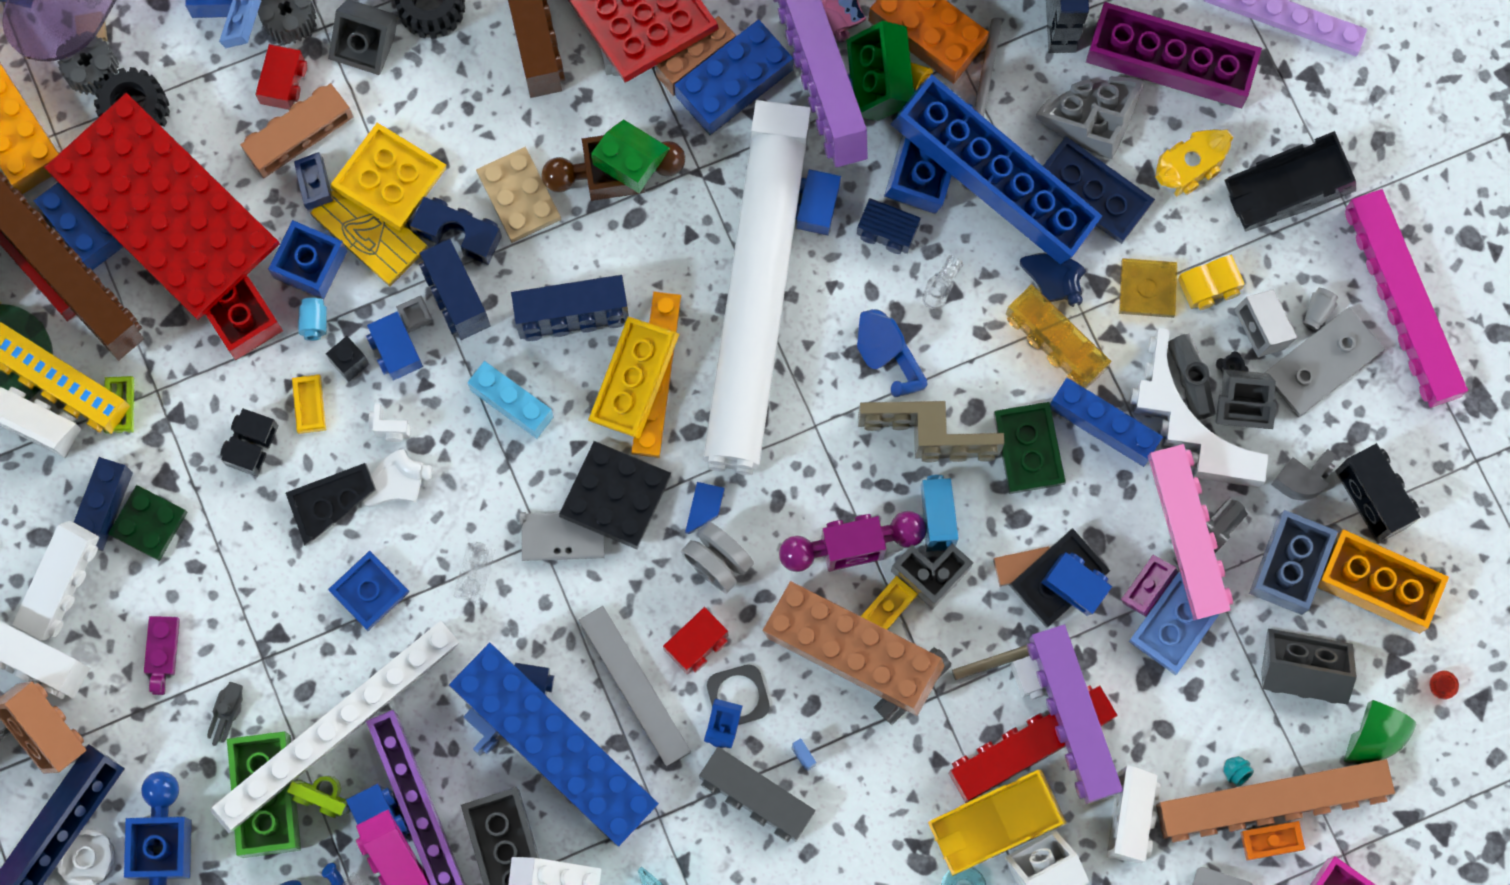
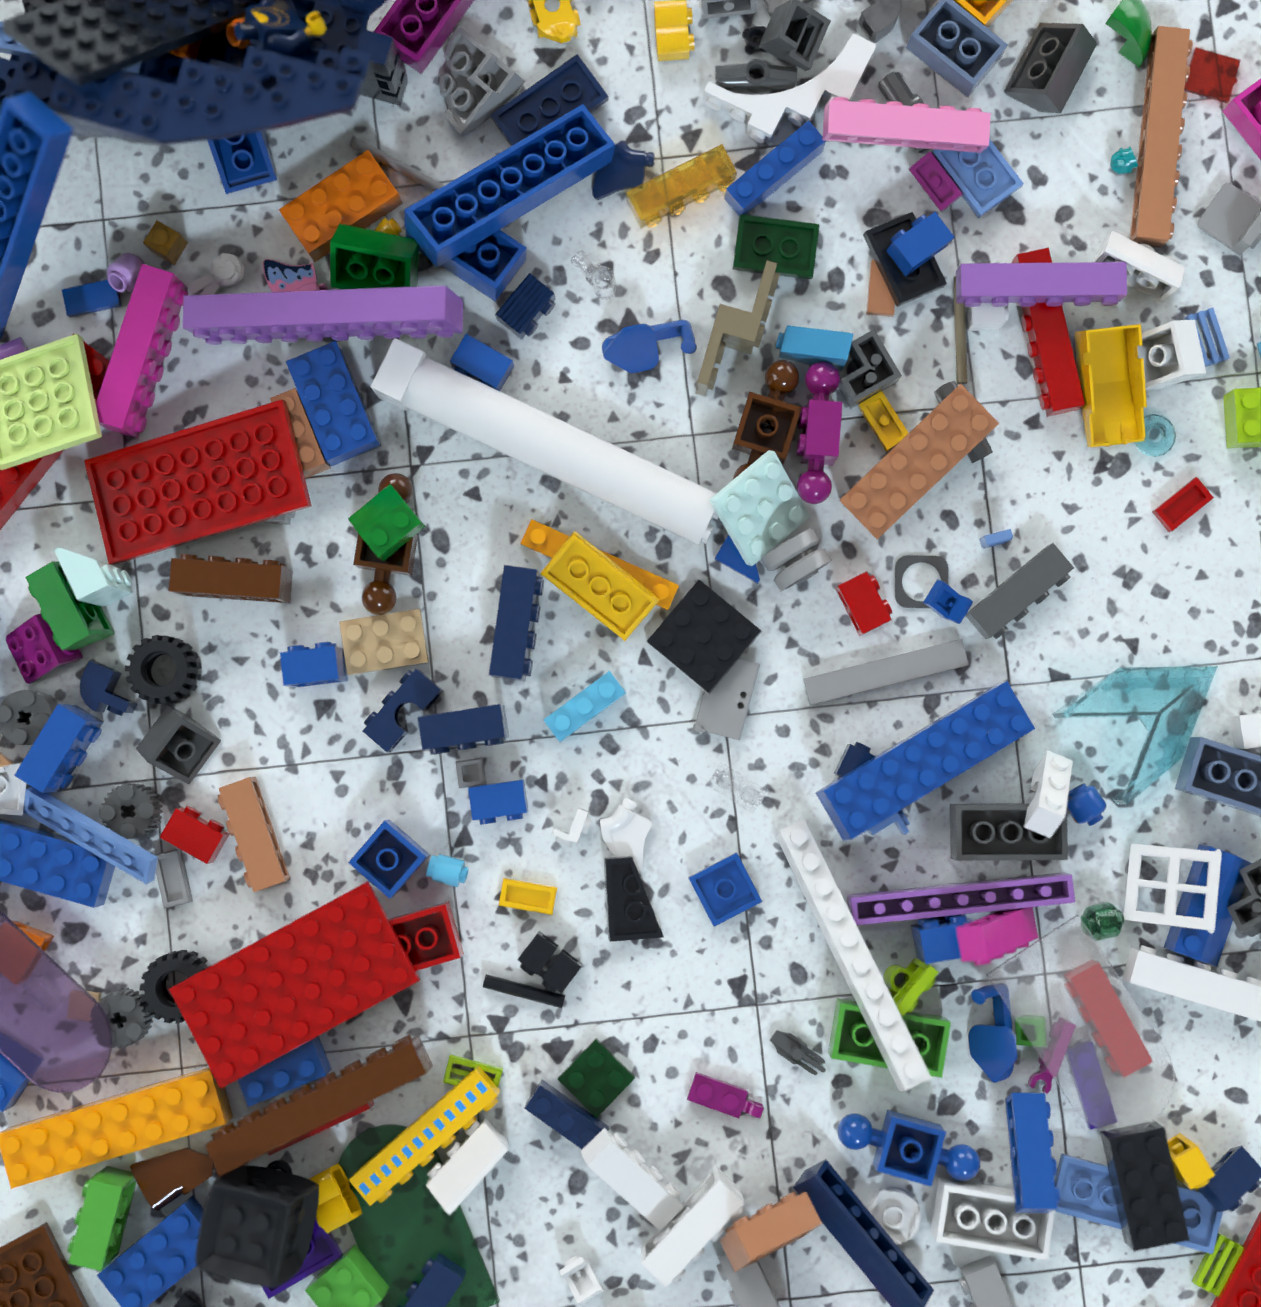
camera: 65 degrees left, 10 degrees up
(214, 427) = (523, 991): none -> black piece
(233, 70) = (173, 879): none -> light grey tile
(313, 181) = (311, 832): dark blue plate -> none
(347, 358) = (497, 848): black brick -> none
(369, 238) = (374, 793): yellow tile -> none
(388, 176) = (329, 759): yellow plate -> none
(474, 132) = (313, 666): none -> blue brick
(757, 505) = (759, 508): none -> light aqua plate
(855, 476) = (781, 379): none -> reddish brown brick
(1148, 288) = (657, 90): clear yellow tile -> none
(1272, 840) = (1195, 152): orange plate -> none
(1362, 837) = (1212, 75): none -> clear red piece

